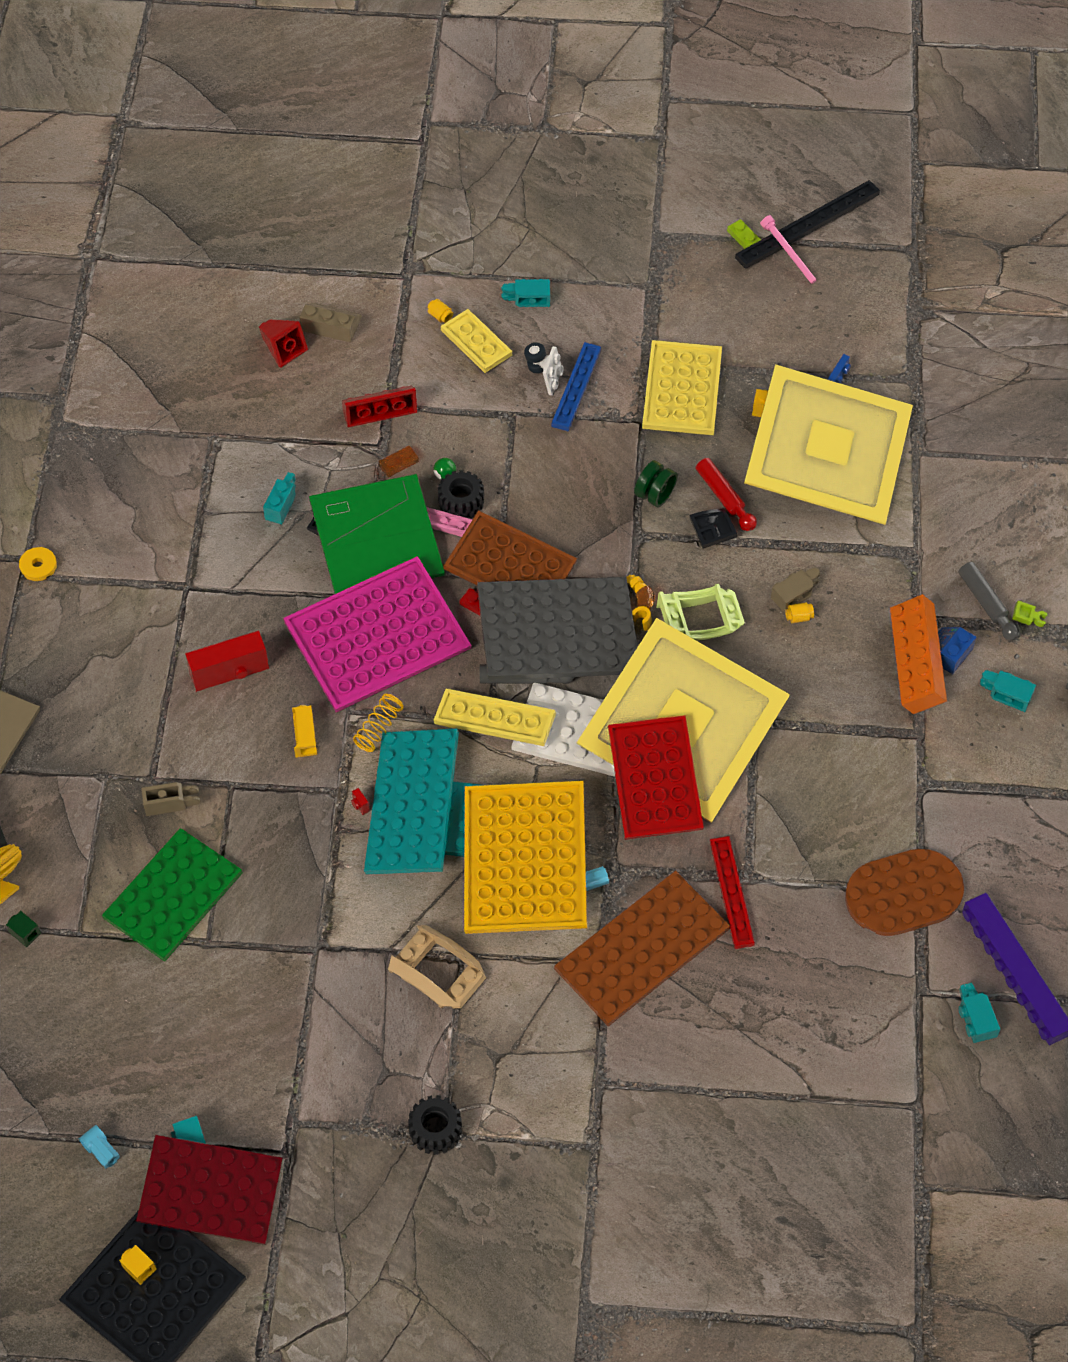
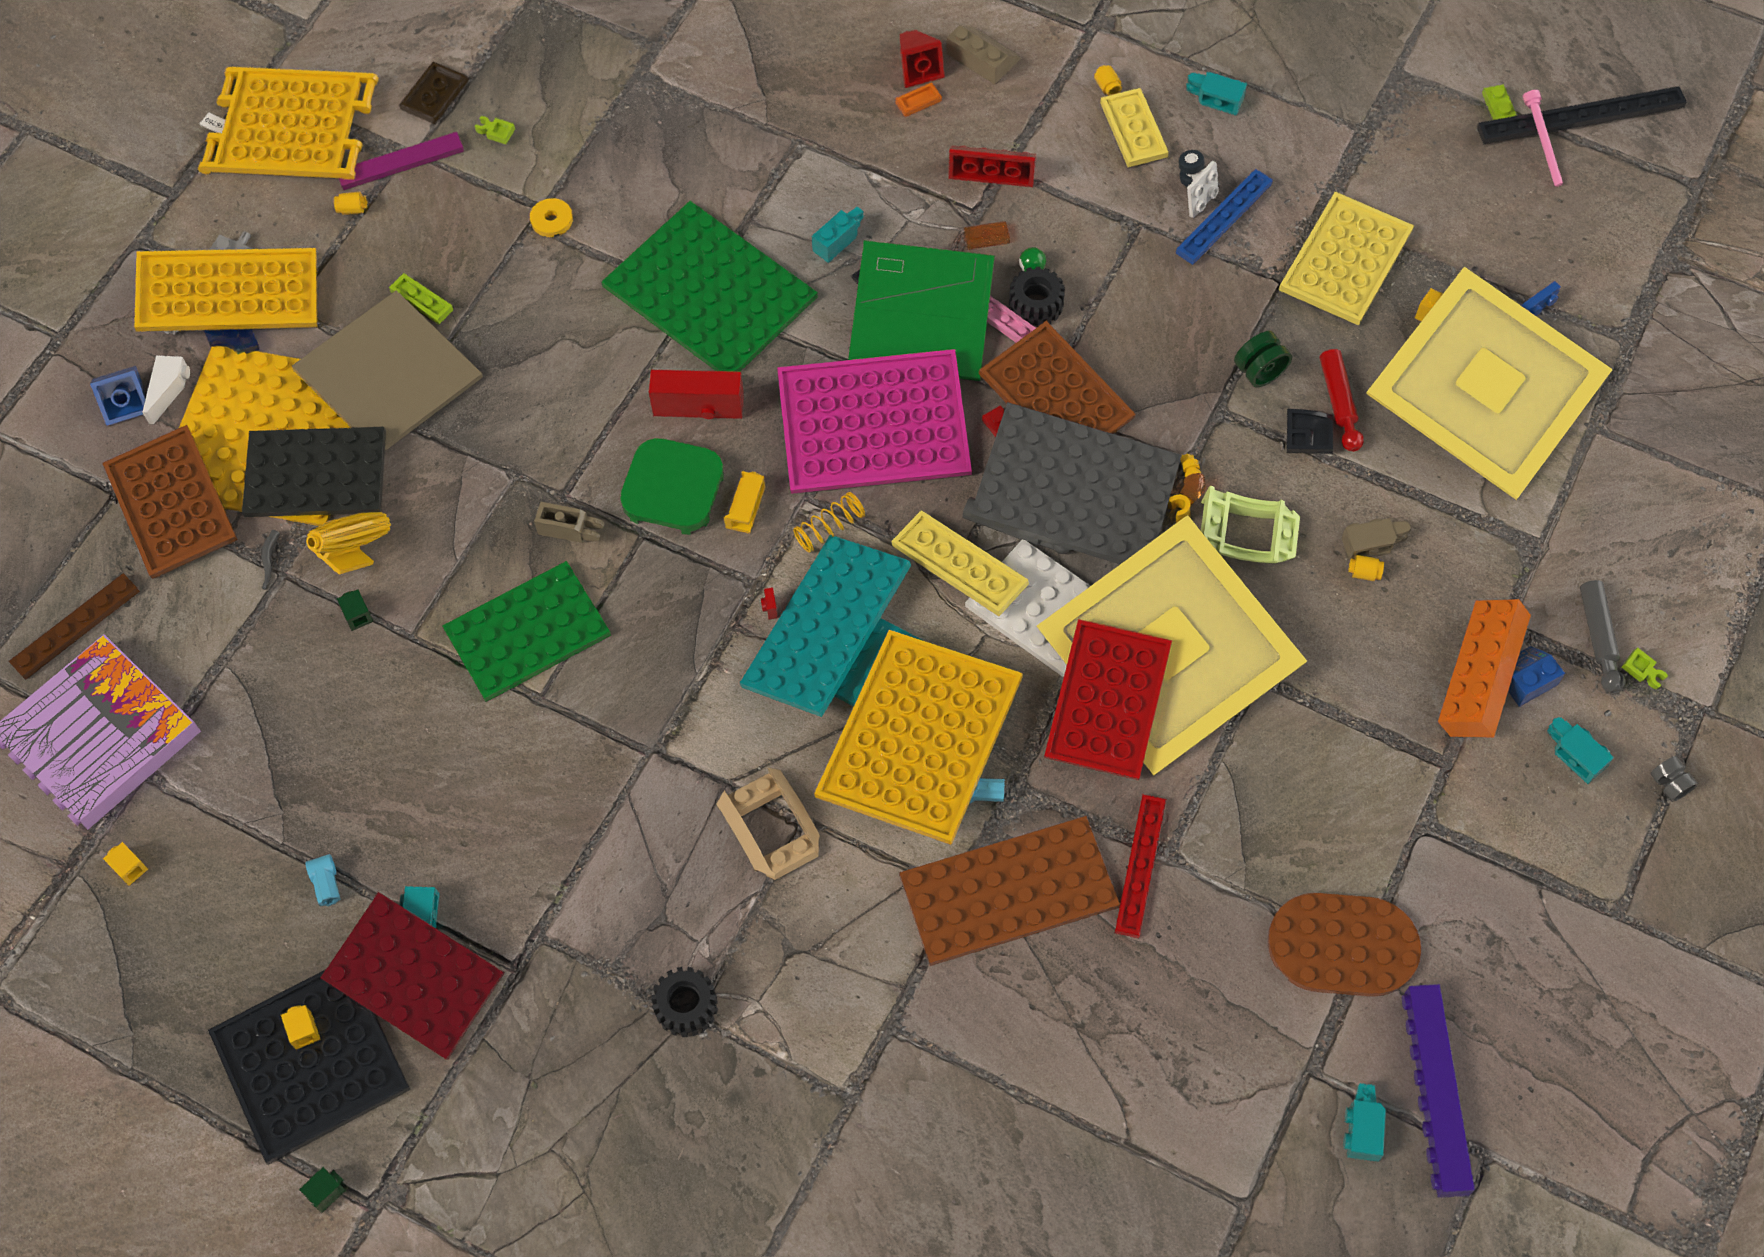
camera: 25 degrees right, 5 degrees up
(195, 577) = (709, 289): none -> green plate
(238, 738) = (672, 485): none -> green tile
(295, 373) = (918, 99): none -> orange tile

